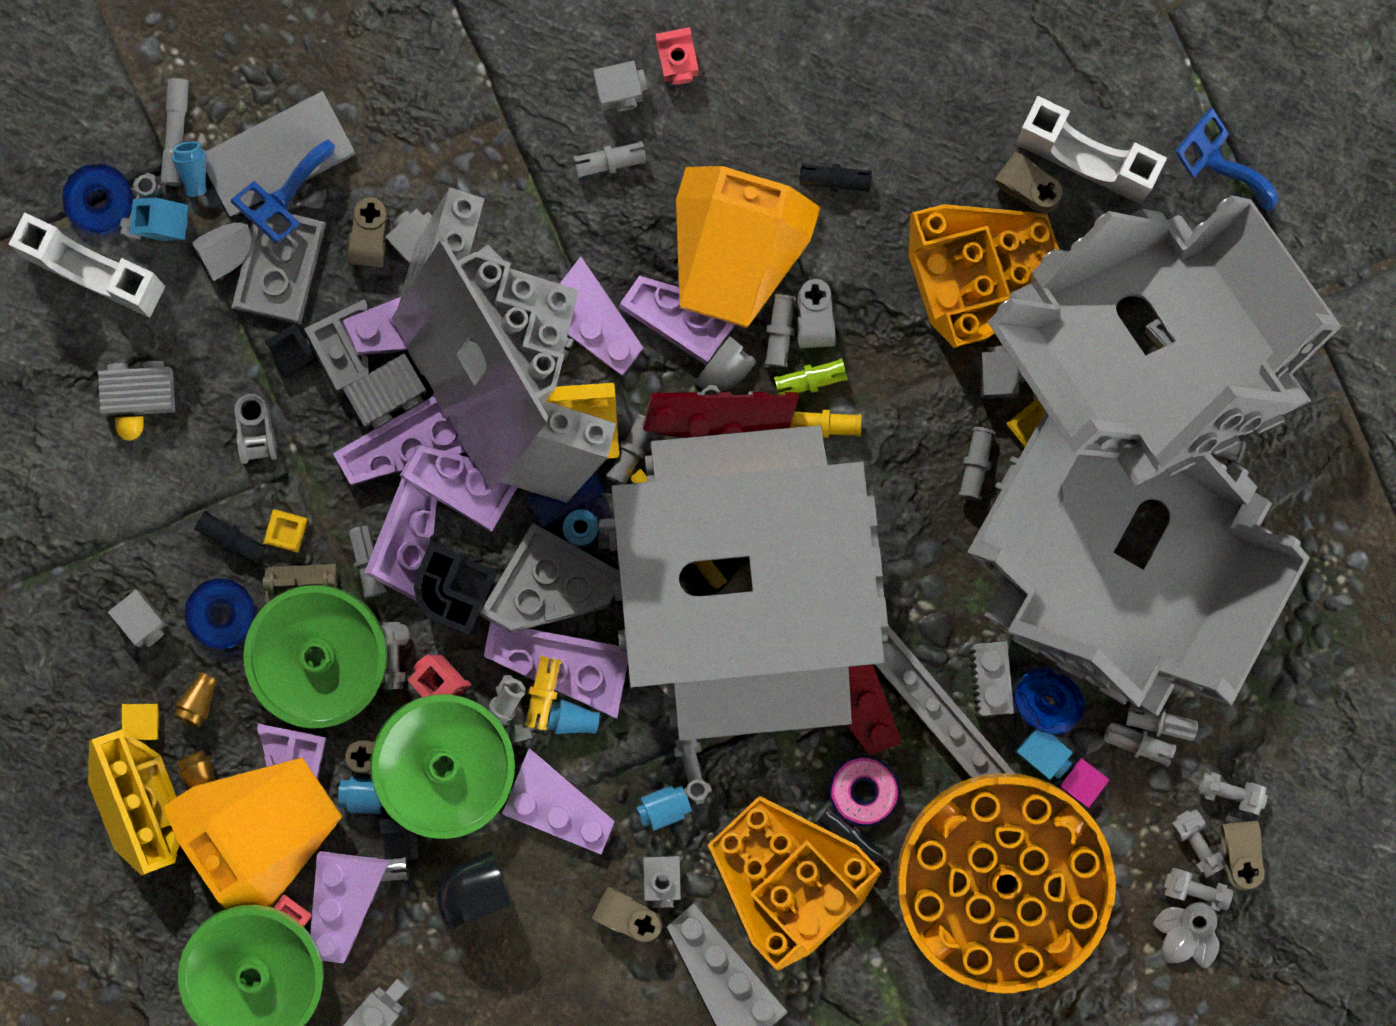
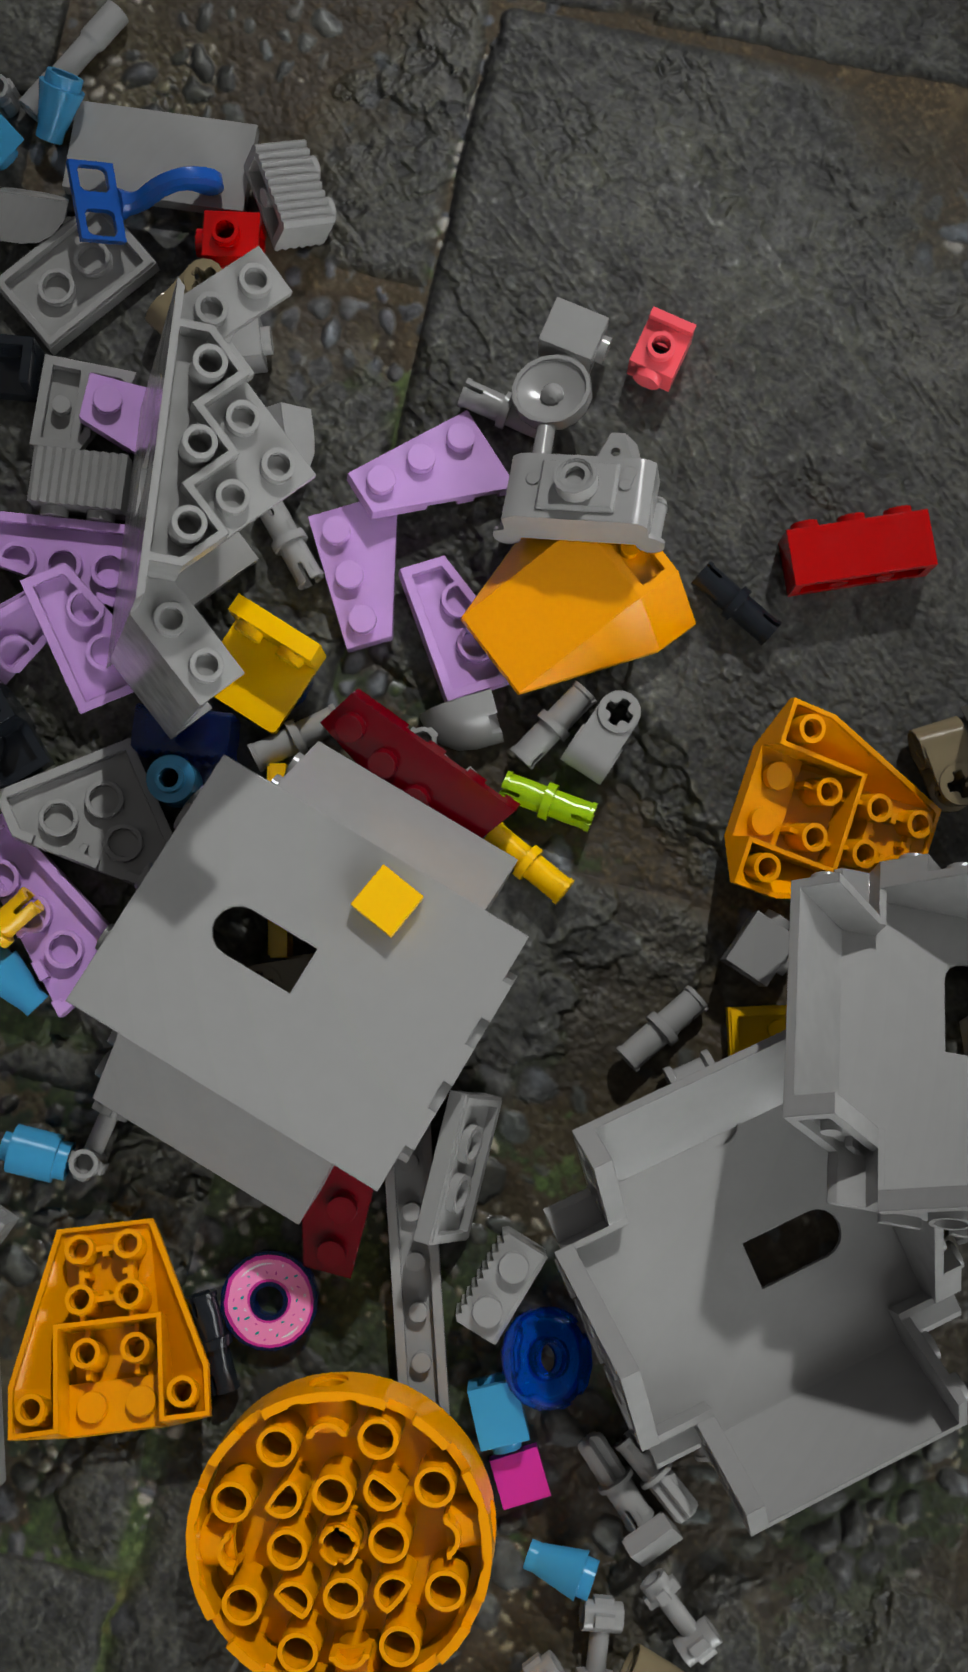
camera: 45 degrees right, 0 degrees up
(365, 176) = (229, 235): none -> red brick
(379, 121) = (290, 194): none -> light grey brick
(593, 227) = (431, 469): none -> lavender wing
(696, 187) = (576, 495): none -> light grey piece
(769, 499) = (387, 901): none -> yellow tile
(884, 94) = (857, 550): none -> red brick
(918, 628) = (458, 1168): none -> light grey tile
(1146, 814) = (563, 1568): none -> dark azure cone
(1185, 759) = (652, 1539): none -> light grey tile

